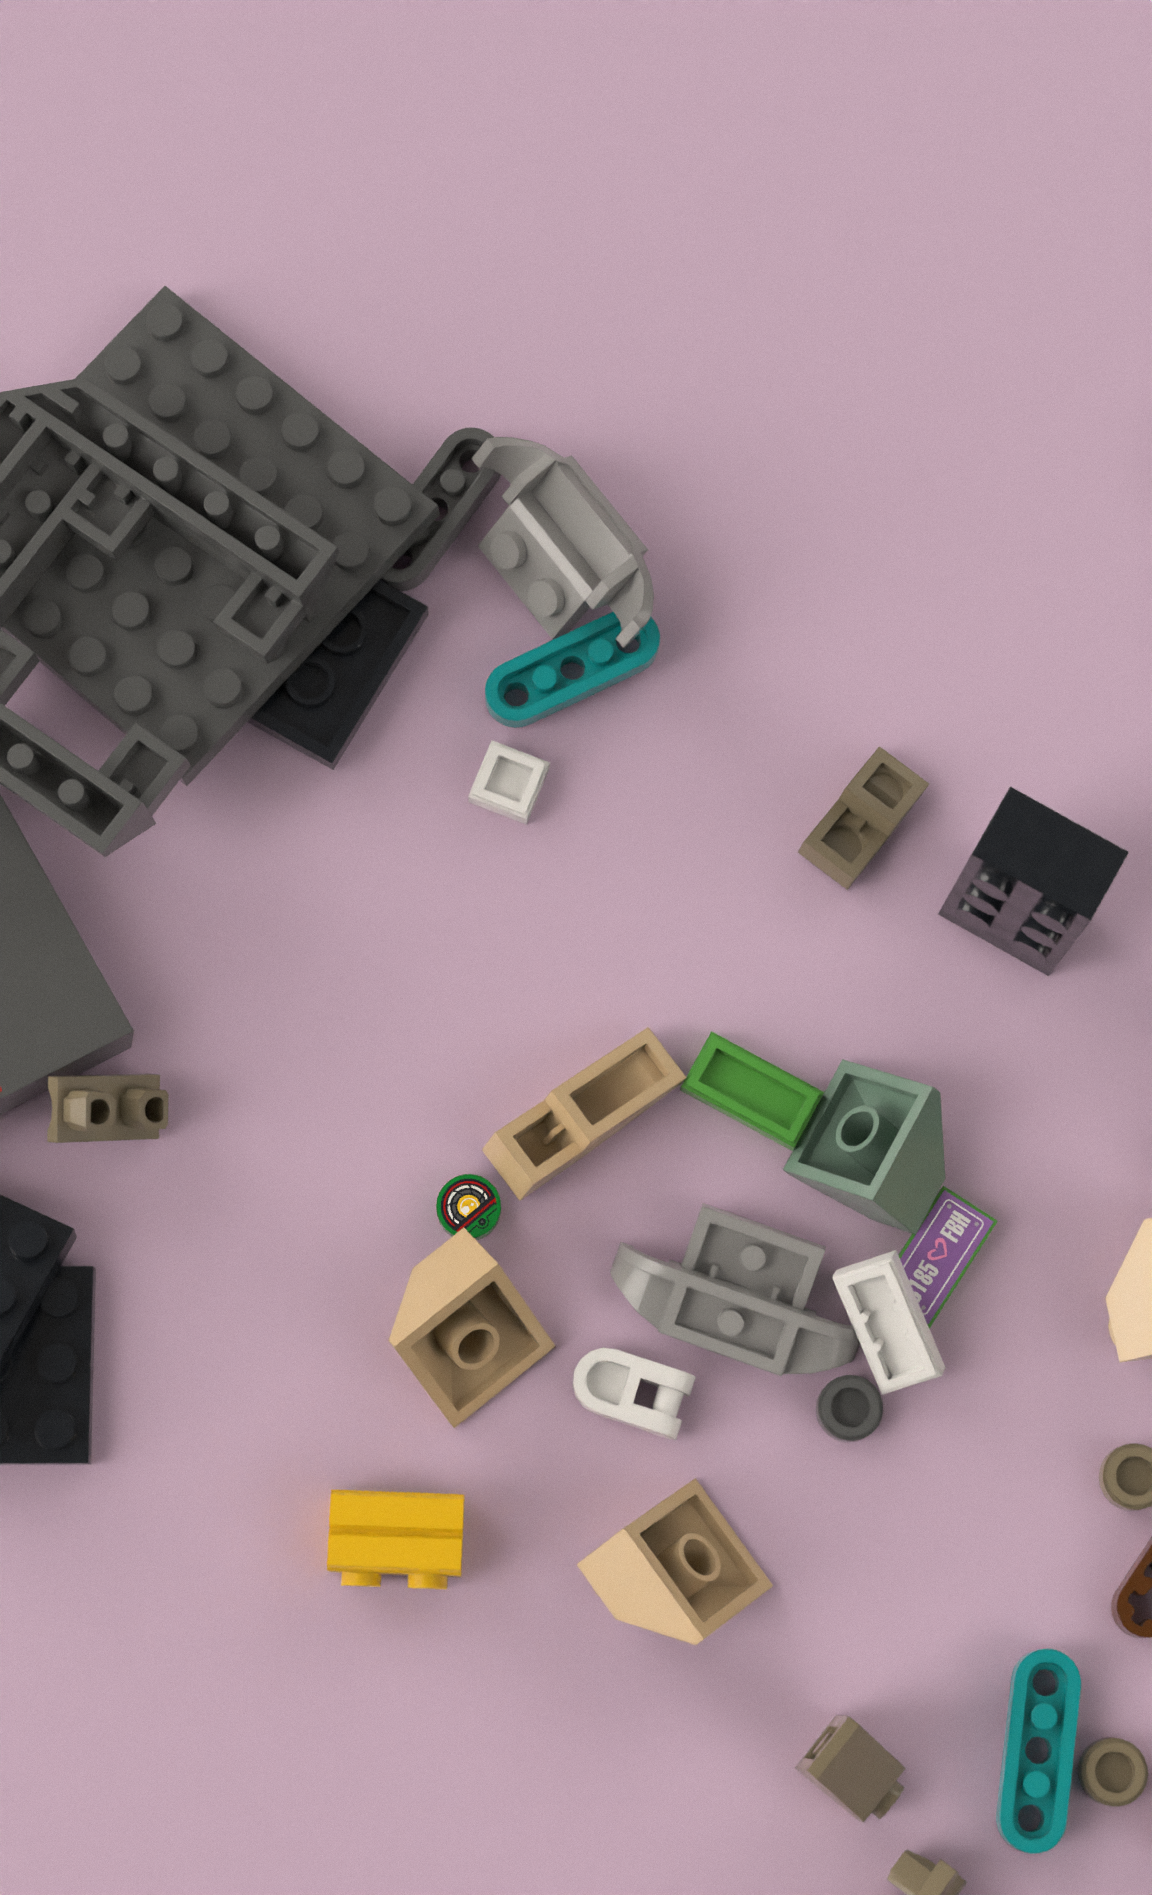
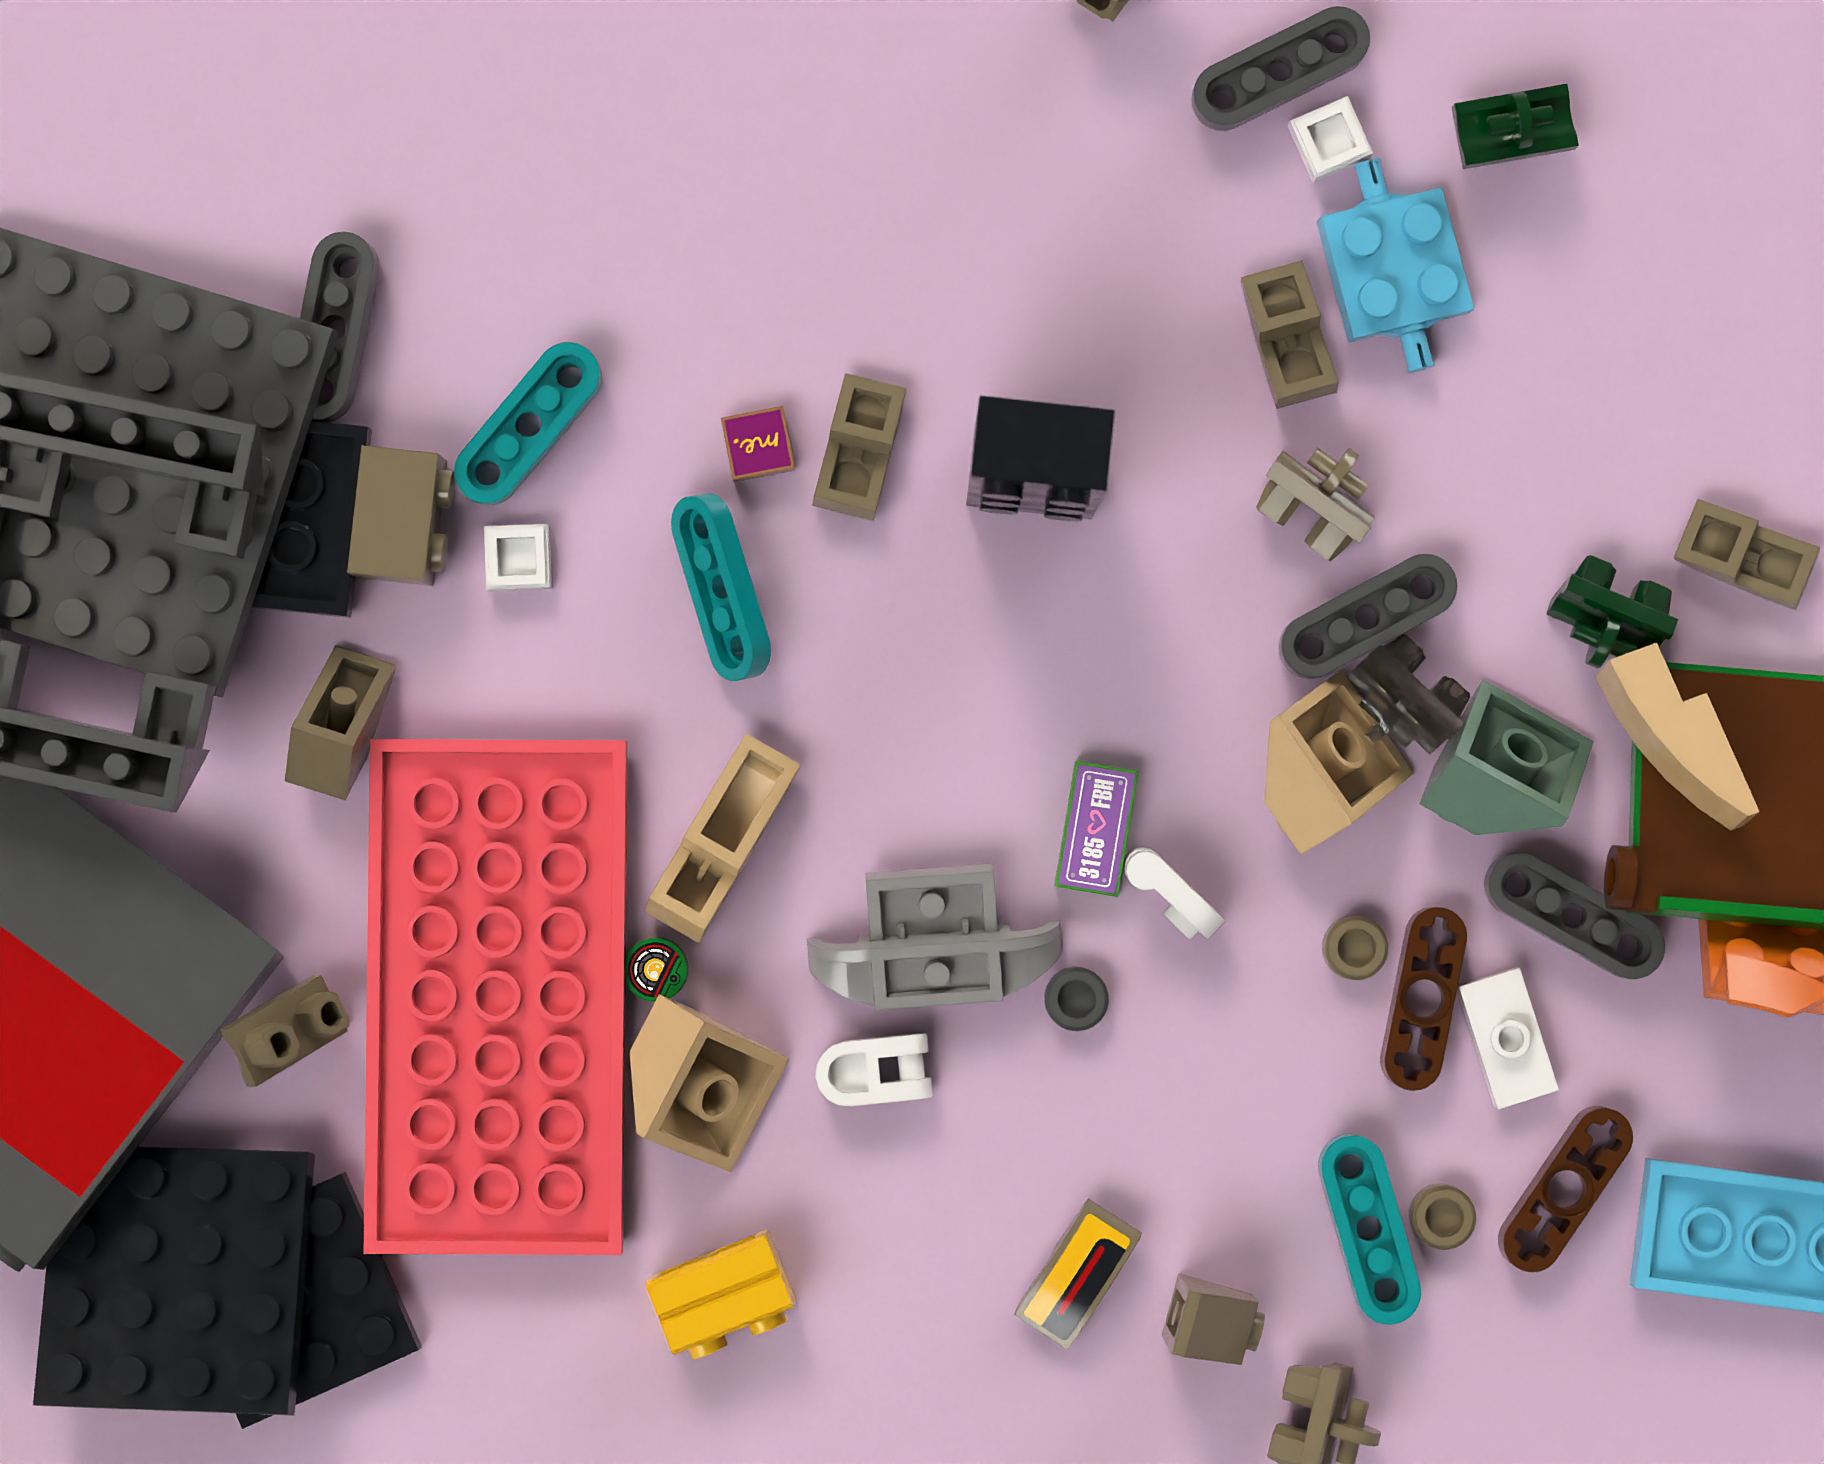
camera: 20 degrees left, 10 degrees up
(279, 855) = (337, 723): none -> dark tan slope
(309, 1169) = (496, 997): none -> coral plate
(420, 697) = (400, 516): none -> dark tan brick
(563, 541) = (466, 309): light grey plate -> none
(676, 1569) = (984, 1213): tan slope -> none
(683, 885) = (720, 587): none -> teal plate
(741, 1669) = (1078, 1273): none -> slope
(751, 1091) = (865, 748): bright green tile -> none
(772, 775) = (758, 444): none -> magenta tile
(874, 1146) = (997, 752): sand green slope -> none
(888, 1322) = (1078, 909): white plate -> none
(992, 1367) = (1187, 908): none -> white plate

